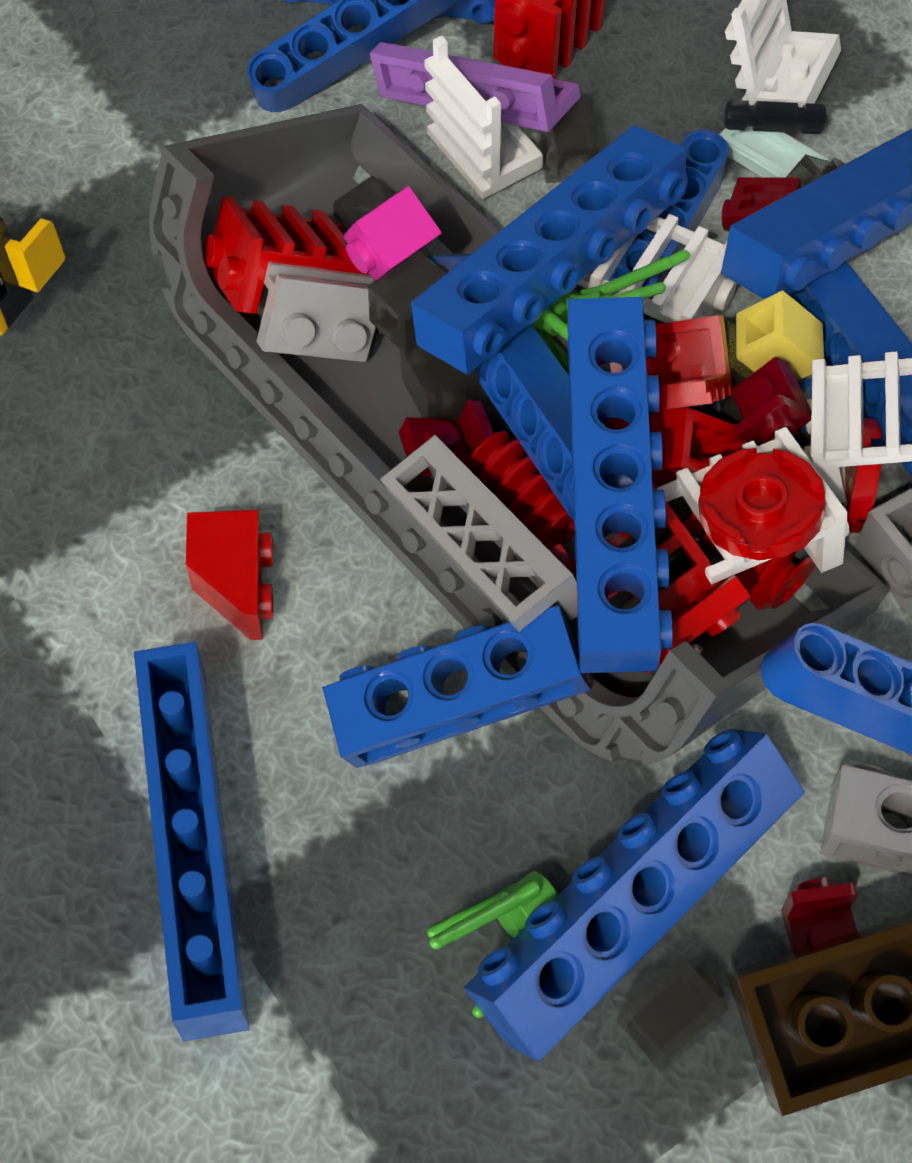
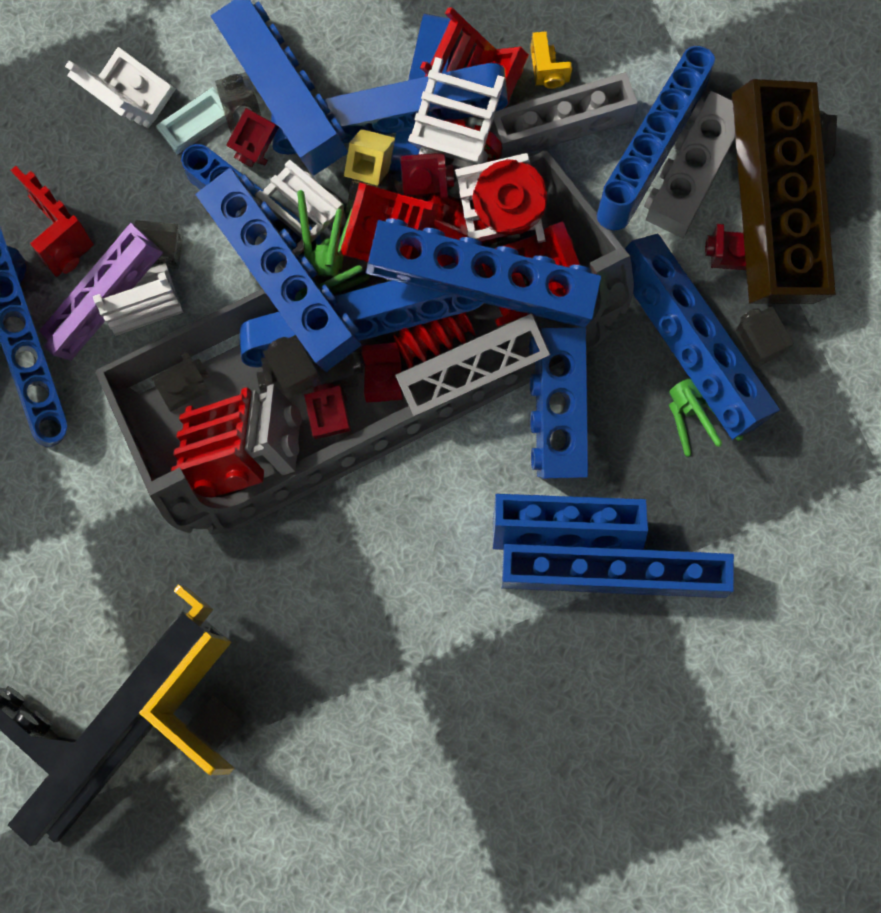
camera: 75 degrees left, 15 degrees up
(227, 566) = (438, 523): red slope -> none
(258, 750) = (569, 521): none -> blue brick
(368, 377) = (327, 411): none -> dark red bracket
(390, 234) = (241, 369): dark pink slope -> none
(775, 116) = (176, 108): black axle -> none

